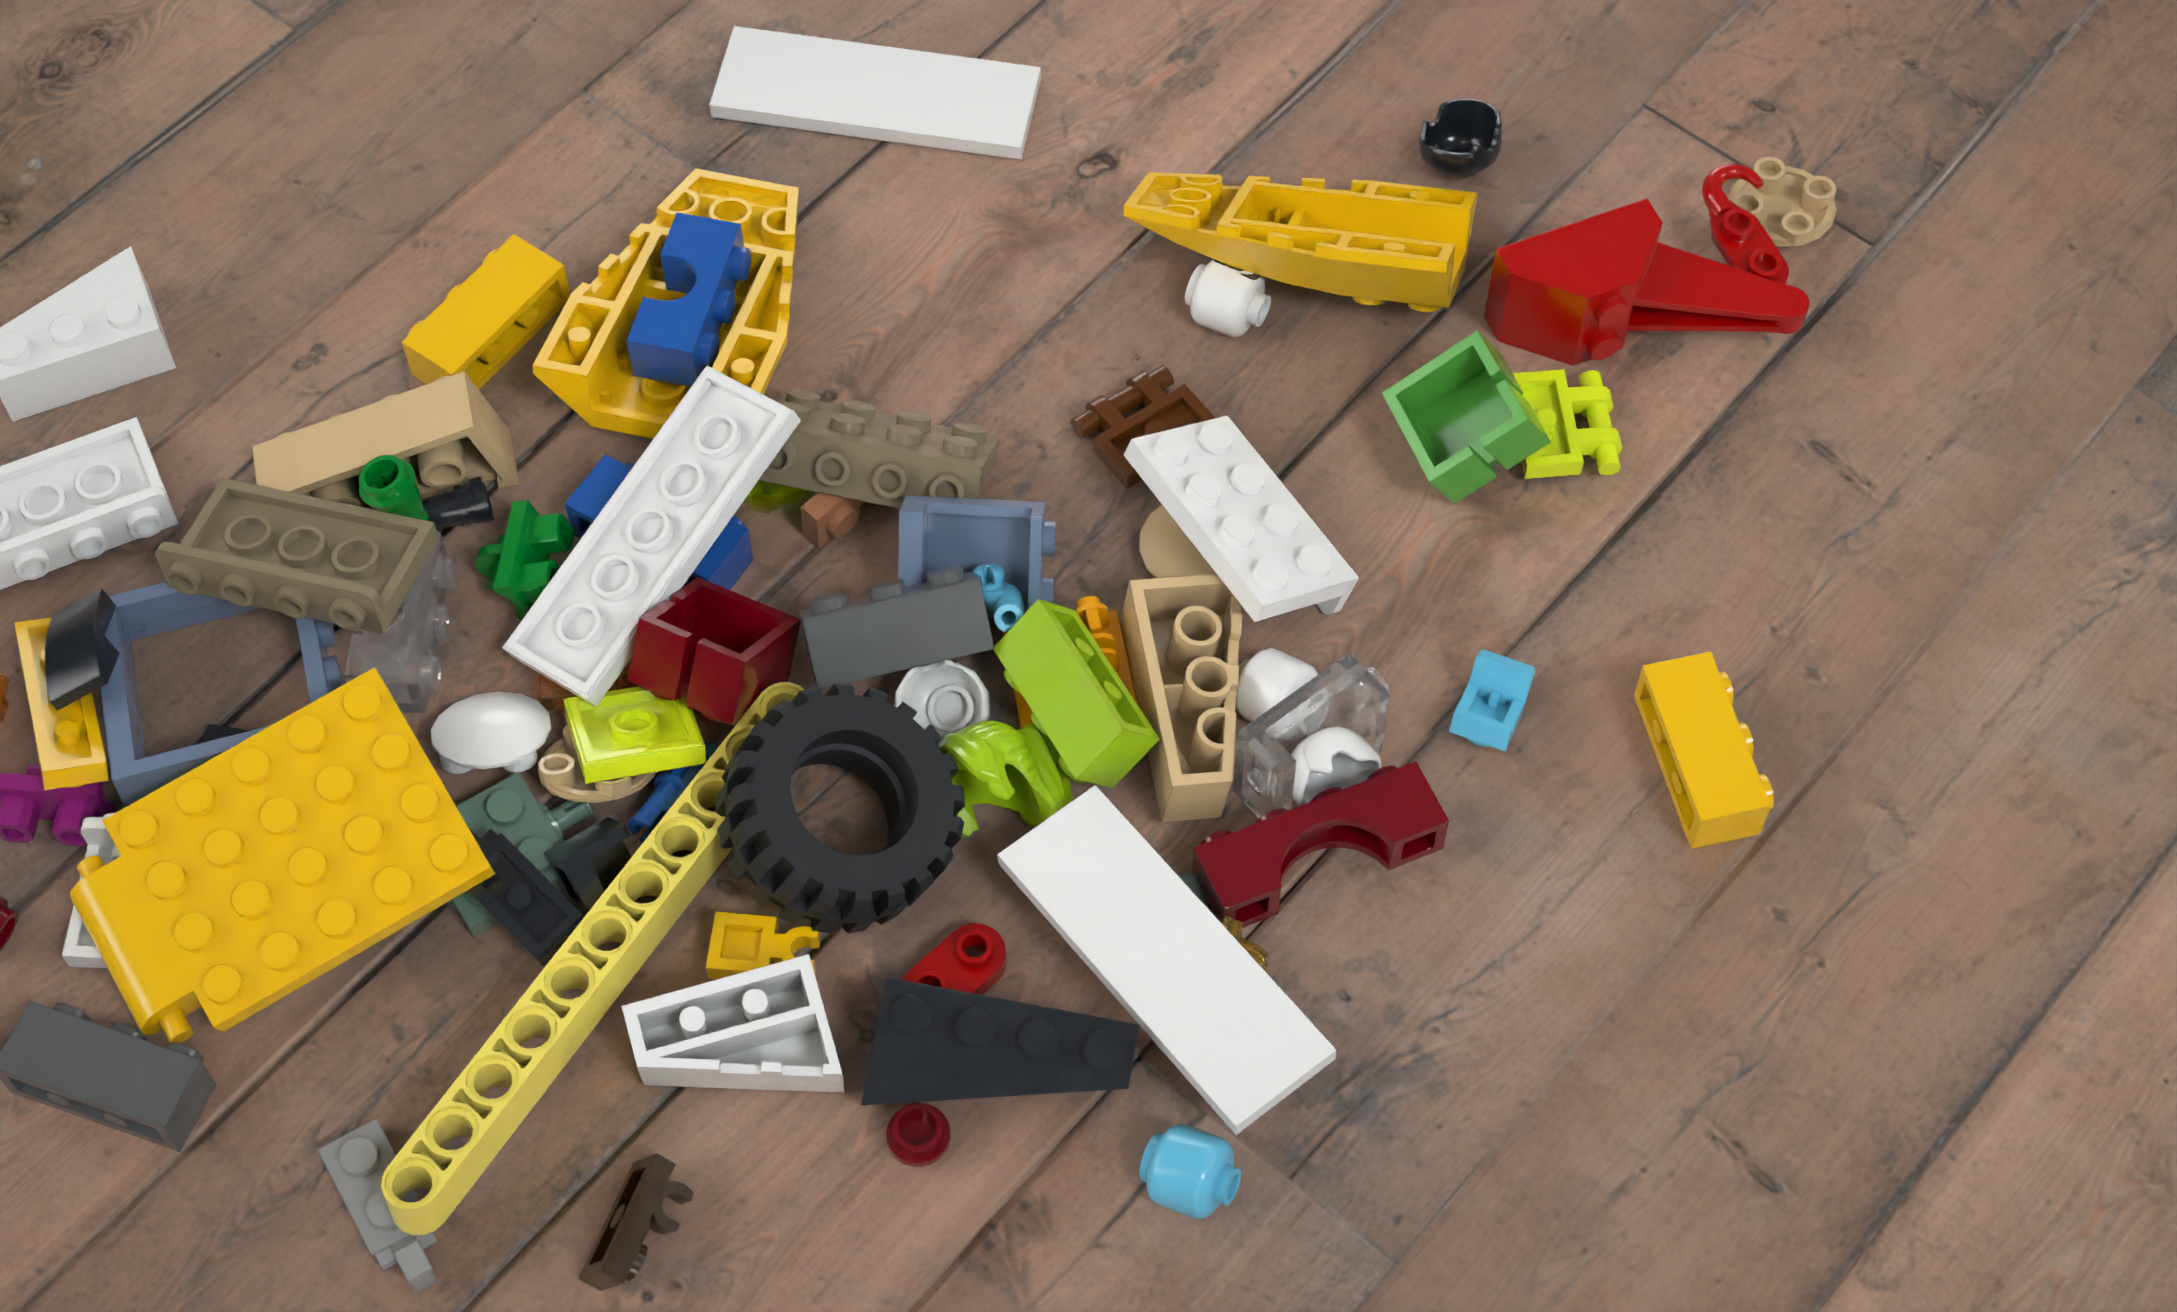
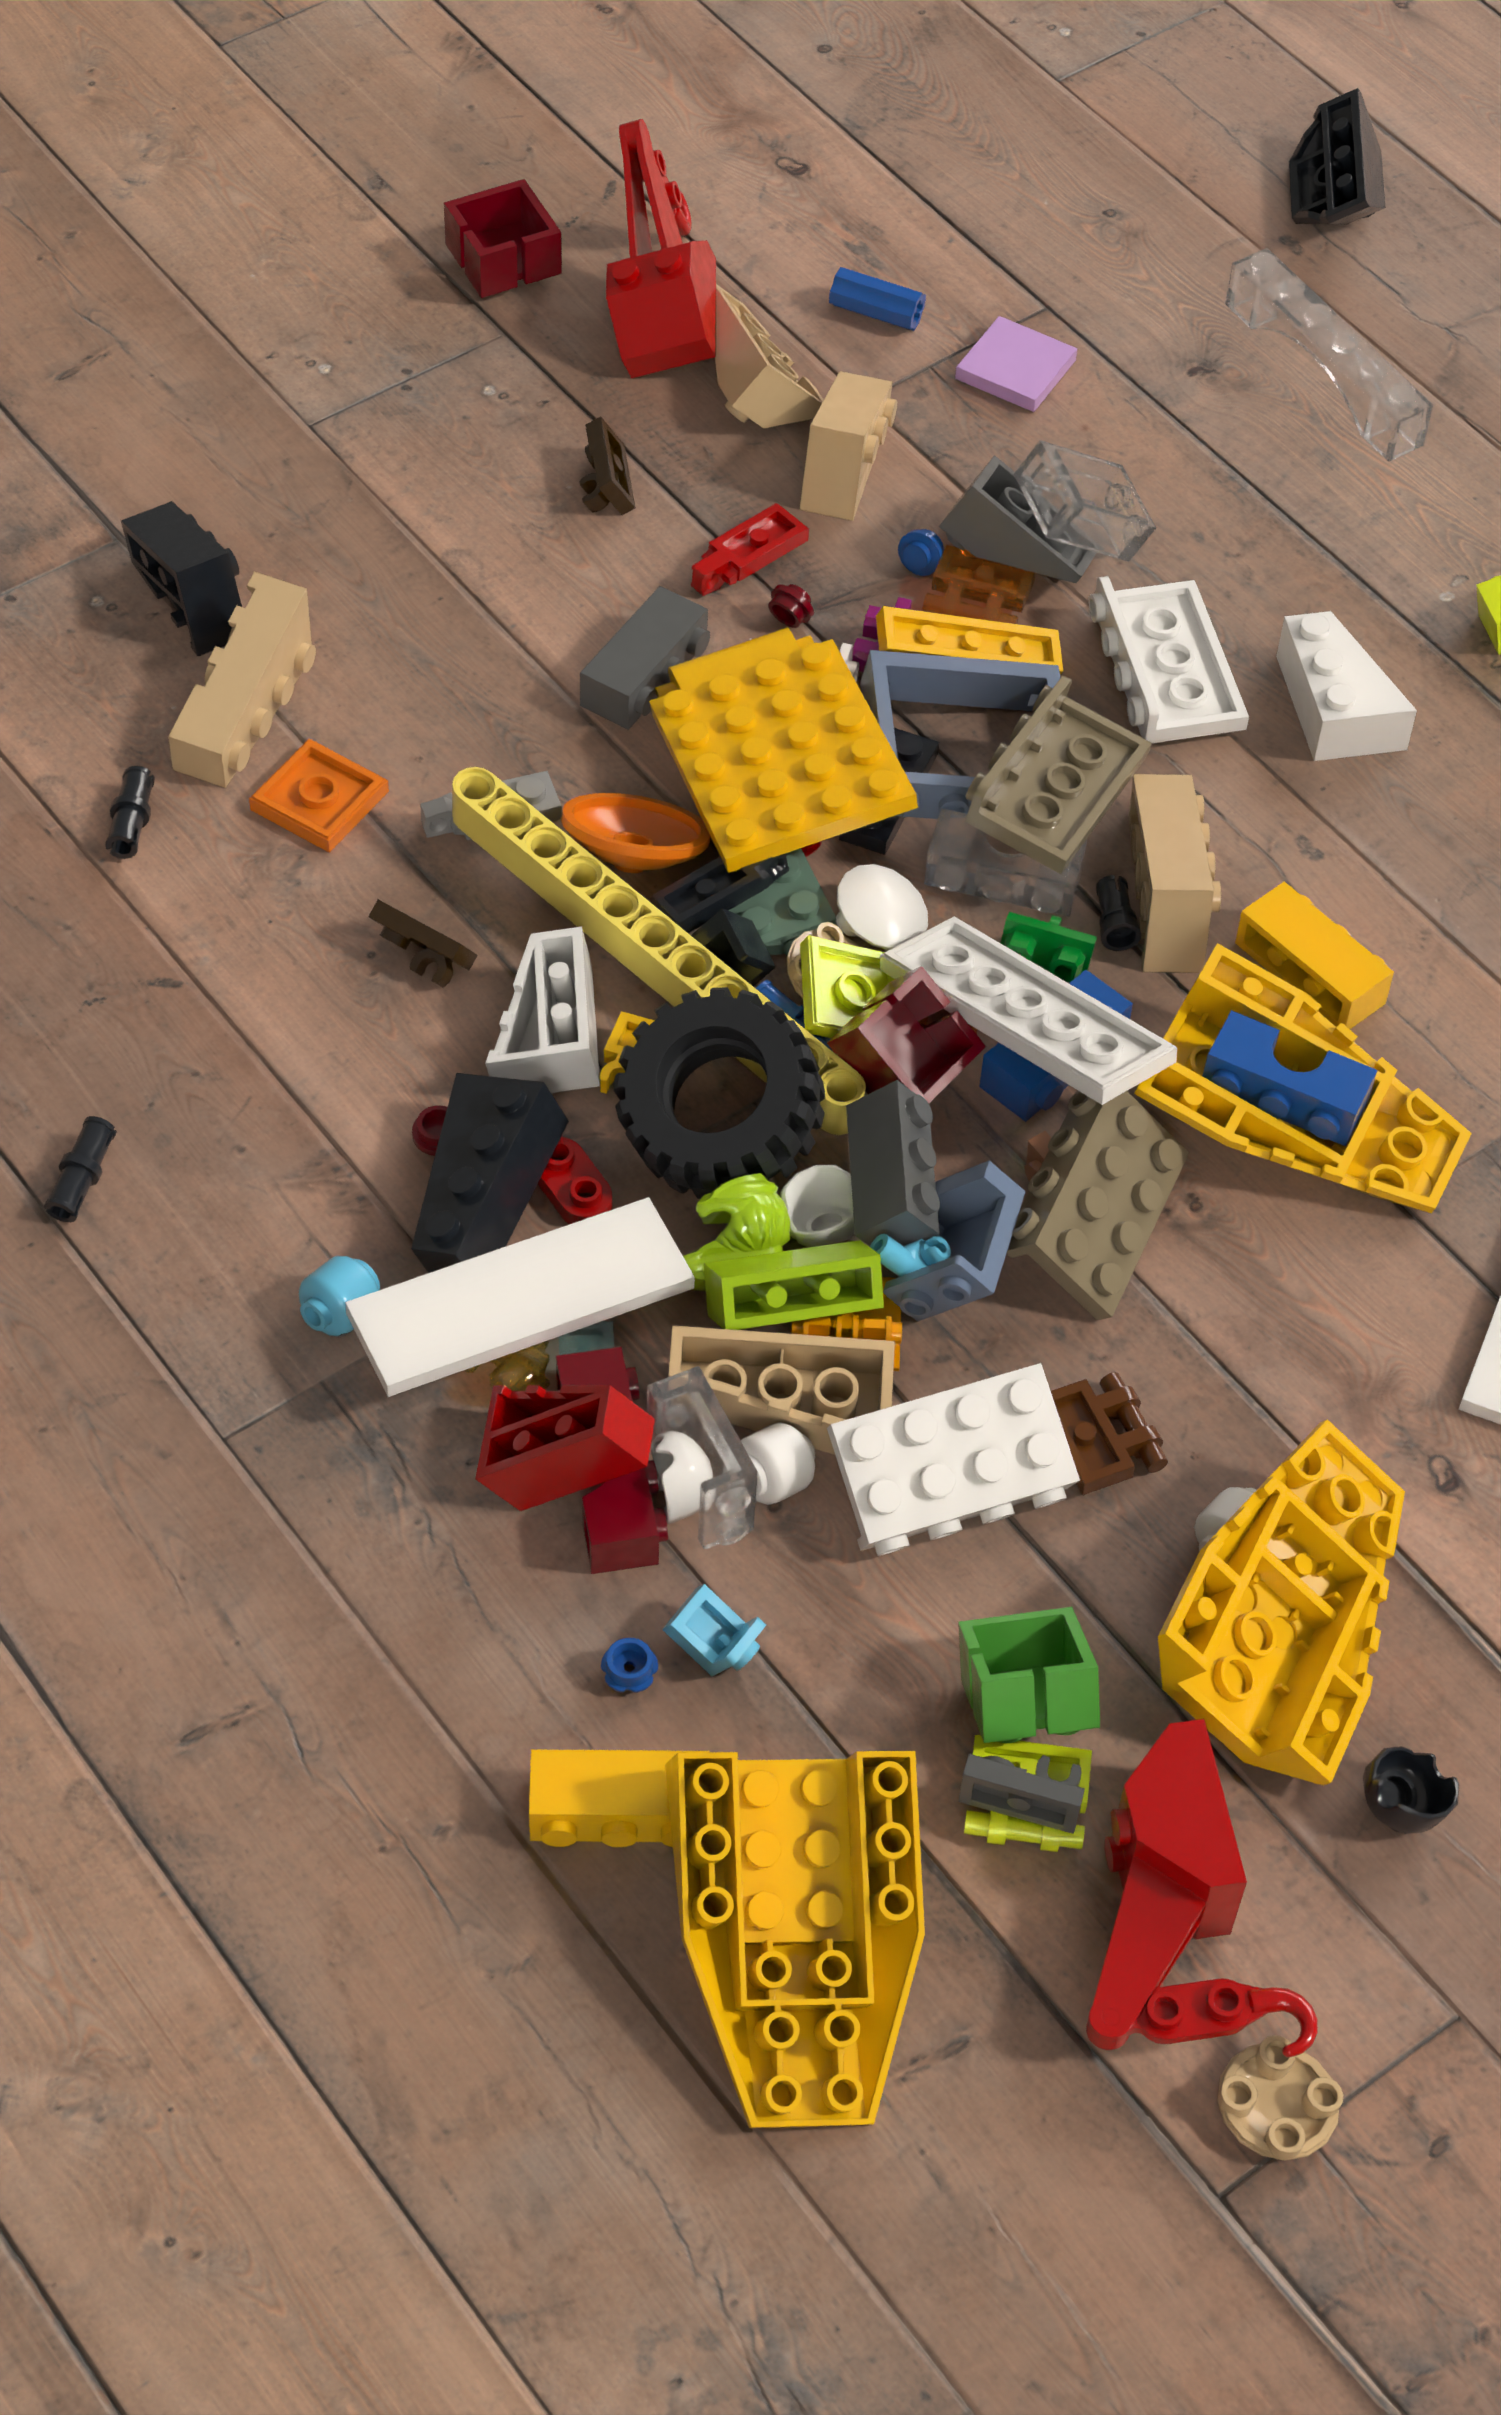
camera: 100 degrees right, 5 degrees down
(77, 650) = (989, 639): black slope -> none
(391, 487) = (1107, 843): green cone -> none
(421, 1006) = (634, 830): none -> orange dish
(1343, 867) = (560, 1441): none -> red wedge
(1550, 765) = (629, 1652): none -> blue plate
(1589, 381) = (1011, 1791): none -> dark grey plate
(1770, 557) = (800, 1922): none -> yellow wedge

